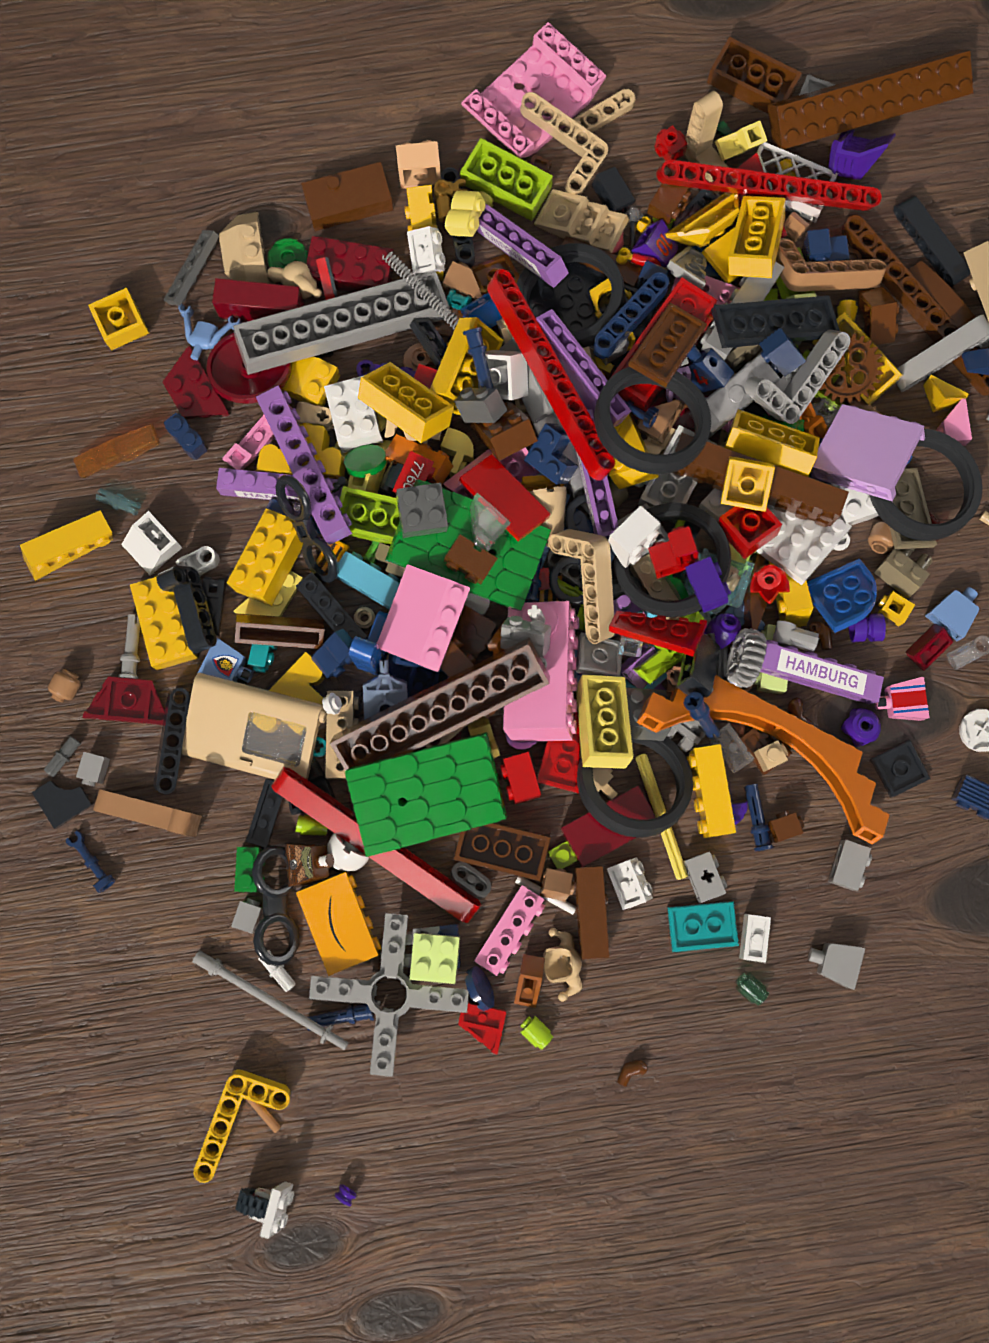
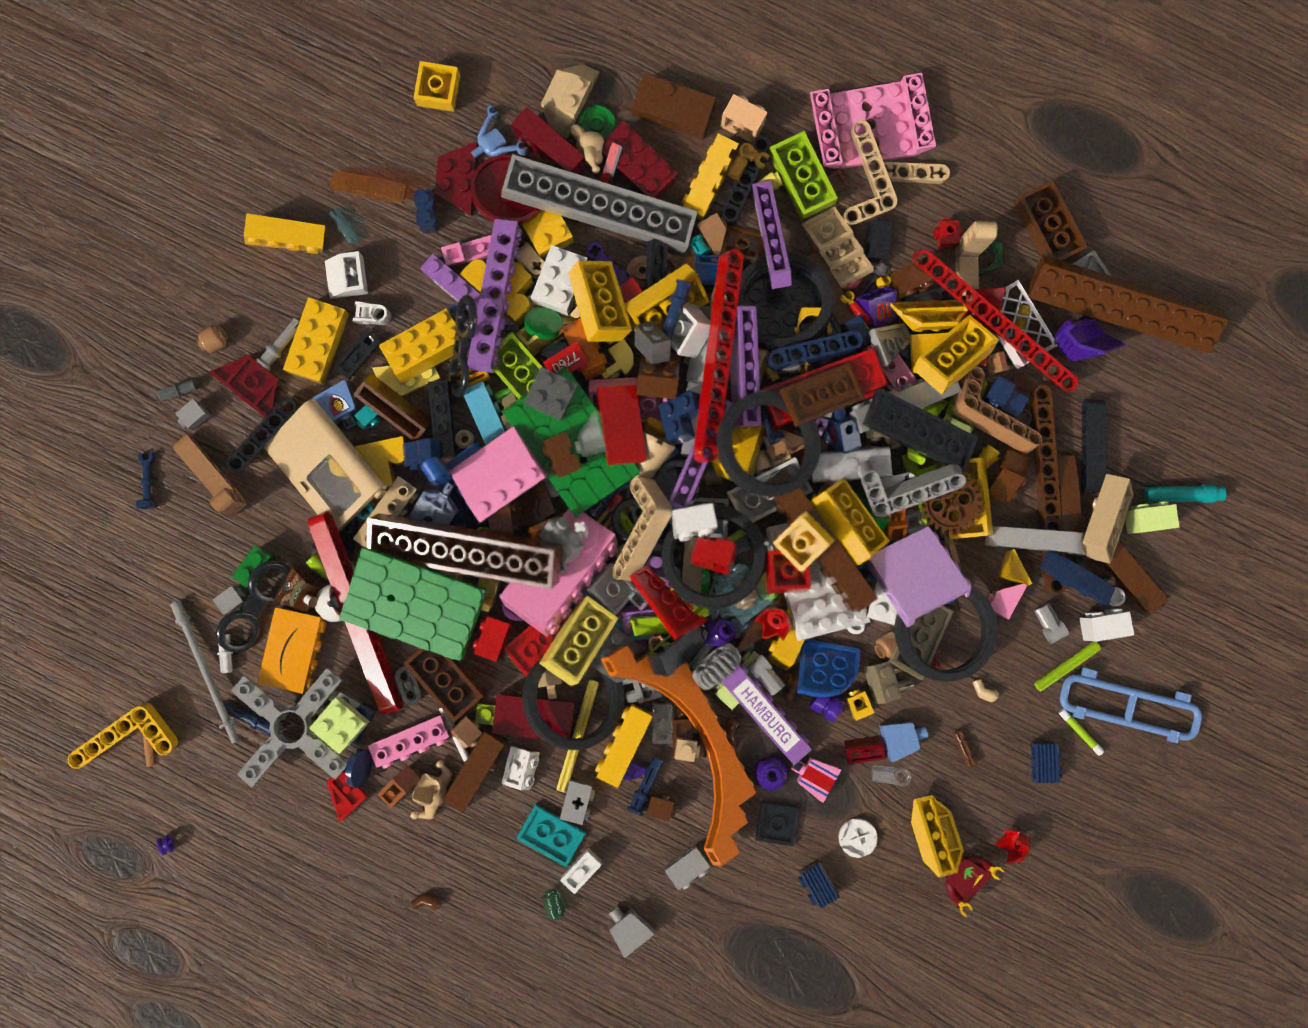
camera: 30 degrees right, 5 degrees up
(61, 804) = (153, 425): black tile -> none
(191, 604) = (342, 344): black beam -> none
(193, 264) = (519, 82): dark grey plate -> none
(265, 816) = (291, 536): black plate -> none
(266, 1206) = (103, 814): white plate -> none
(332, 704) = (392, 489): white plate -> none
(420, 288) = (677, 218): light grey piece -> none
(426, 250) = (700, 192): white bracket -> none
(464, 213) = (749, 183): light yellow brick -> none
(536, 1032) = (378, 826): lime brick -> none
(701, 712) = (650, 684): dark blue pin -> none
(707, 584) = (721, 595): dark purple brick -> none
(741, 141) = (1000, 269): light yellow brick -> none
(781, 352) = (906, 458): dark blue brick -> none

